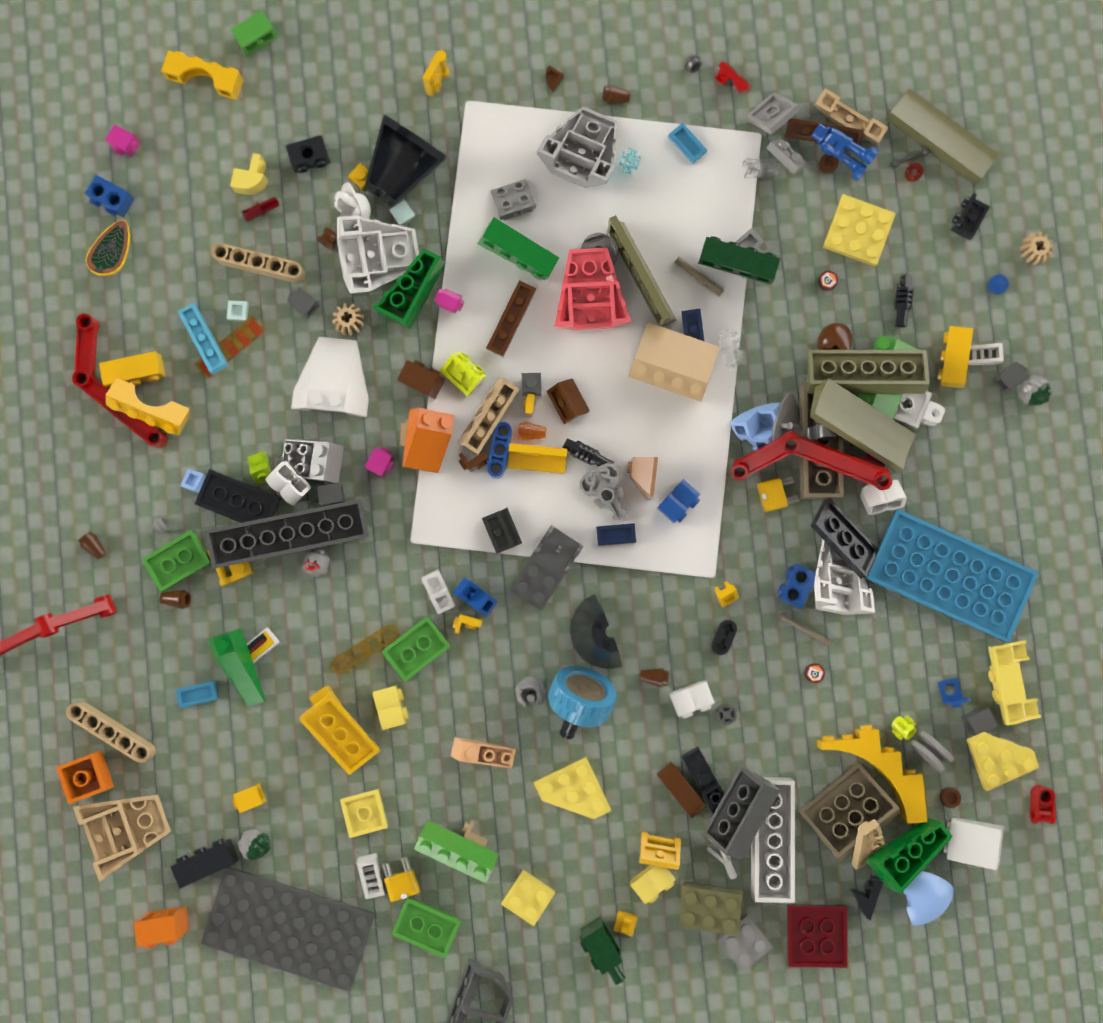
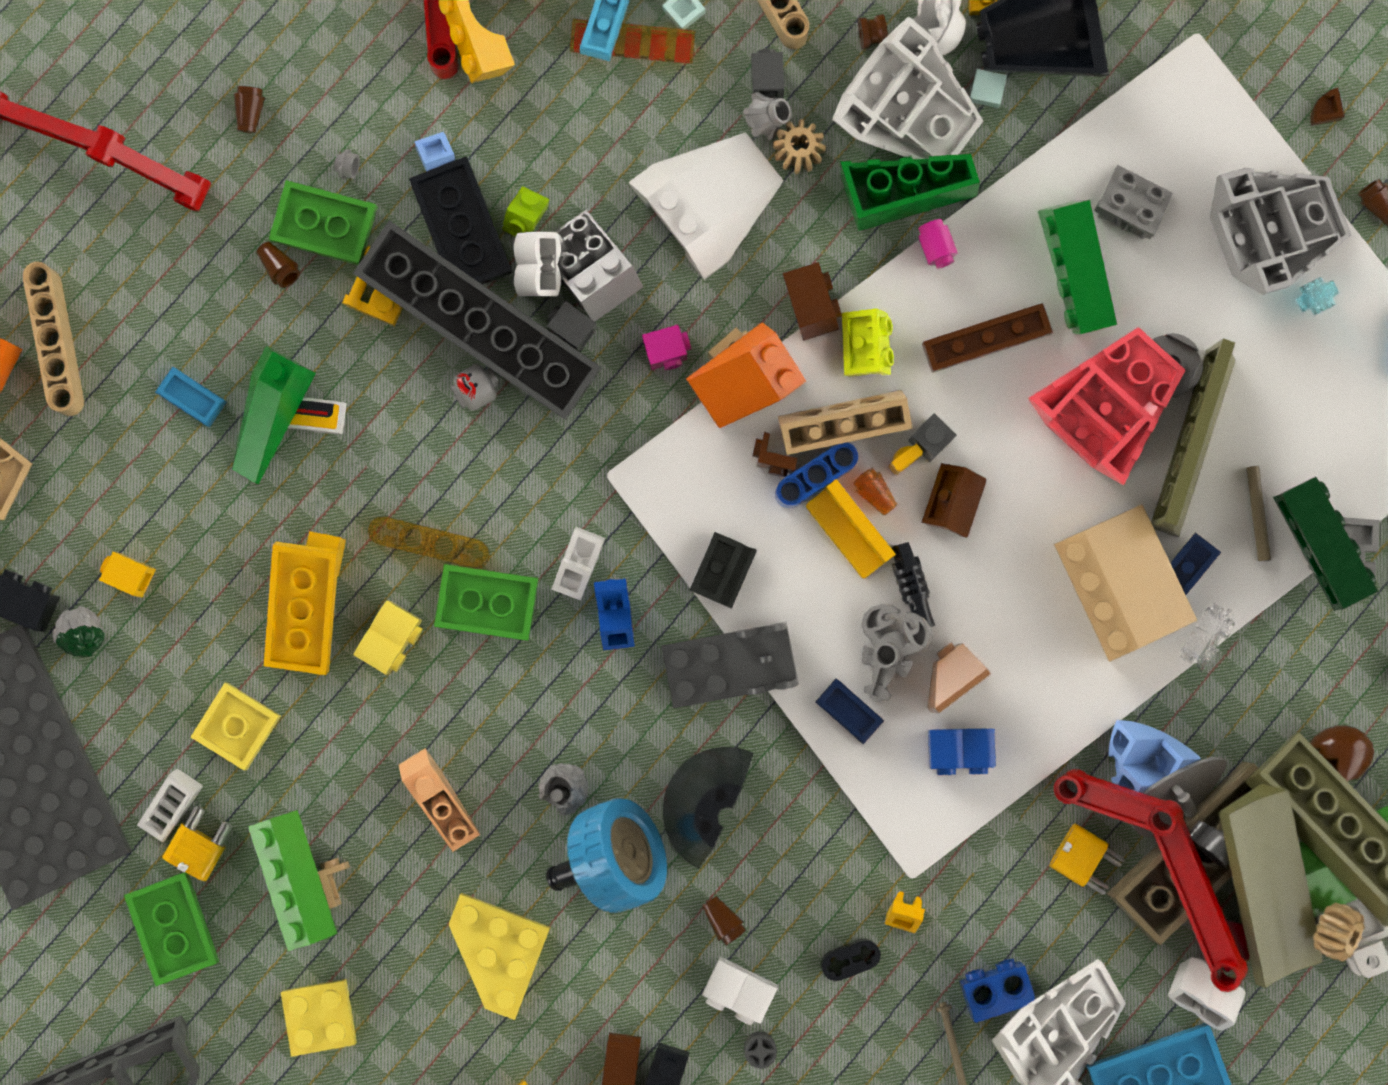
camera: 45 degrees right, 0 degrees up
(320, 319) = (767, 114): none -> light grey rock
(471, 622) = (579, 636): yellow bracket -> none
(844, 538) = (1112, 994): black plate -> none
(909, 415) = (1339, 931): none -> tan gear

